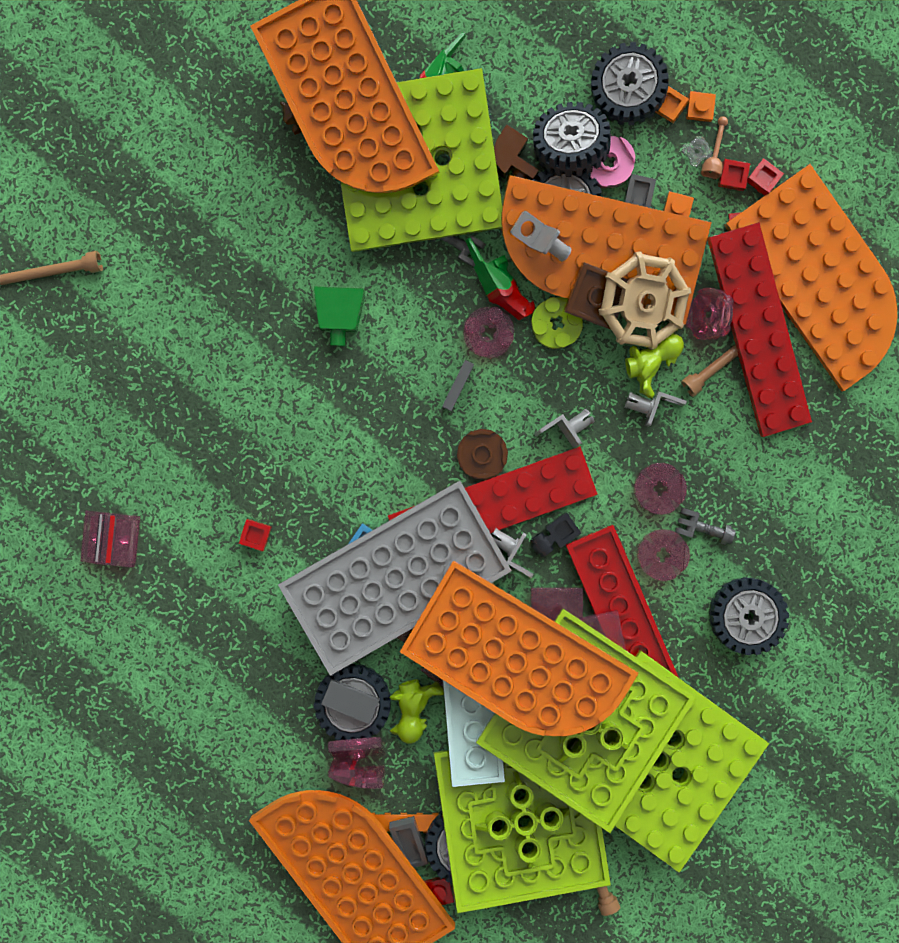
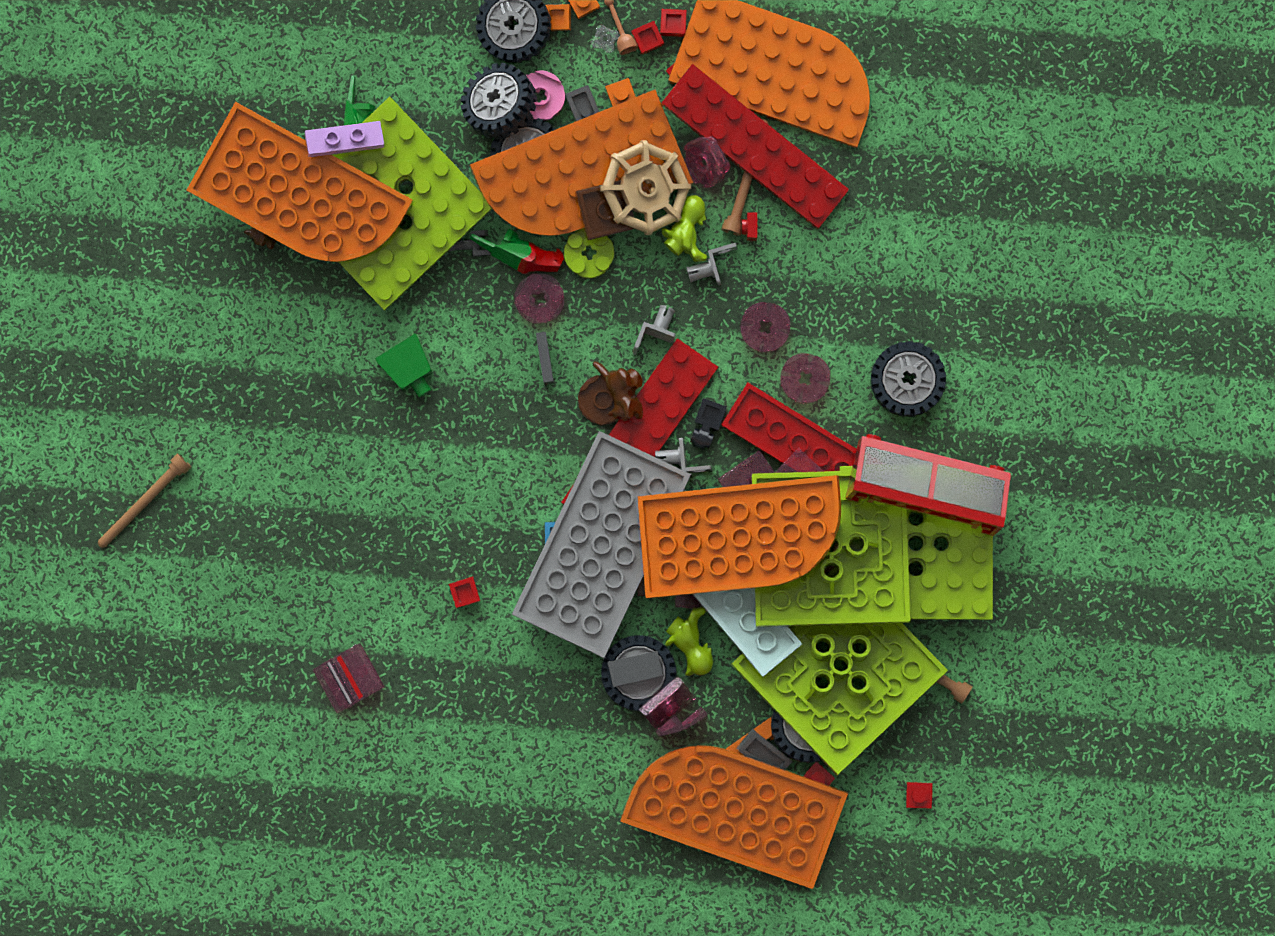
camera: 30 degrees left, 5 degrees down
(416, 75) = (344, 139): none -> lavender plate
(505, 456) = (622, 386): none -> reddish brown animal
(507, 152) = (454, 147): reddish brown brick -> none
(543, 237) = (530, 195): light grey bracket -> none
(708, 396) = (749, 226): none -> red plate
(710, 729) = (929, 484): none -> windscreen
(726, 535) = (812, 337): dark grey hinge -> none

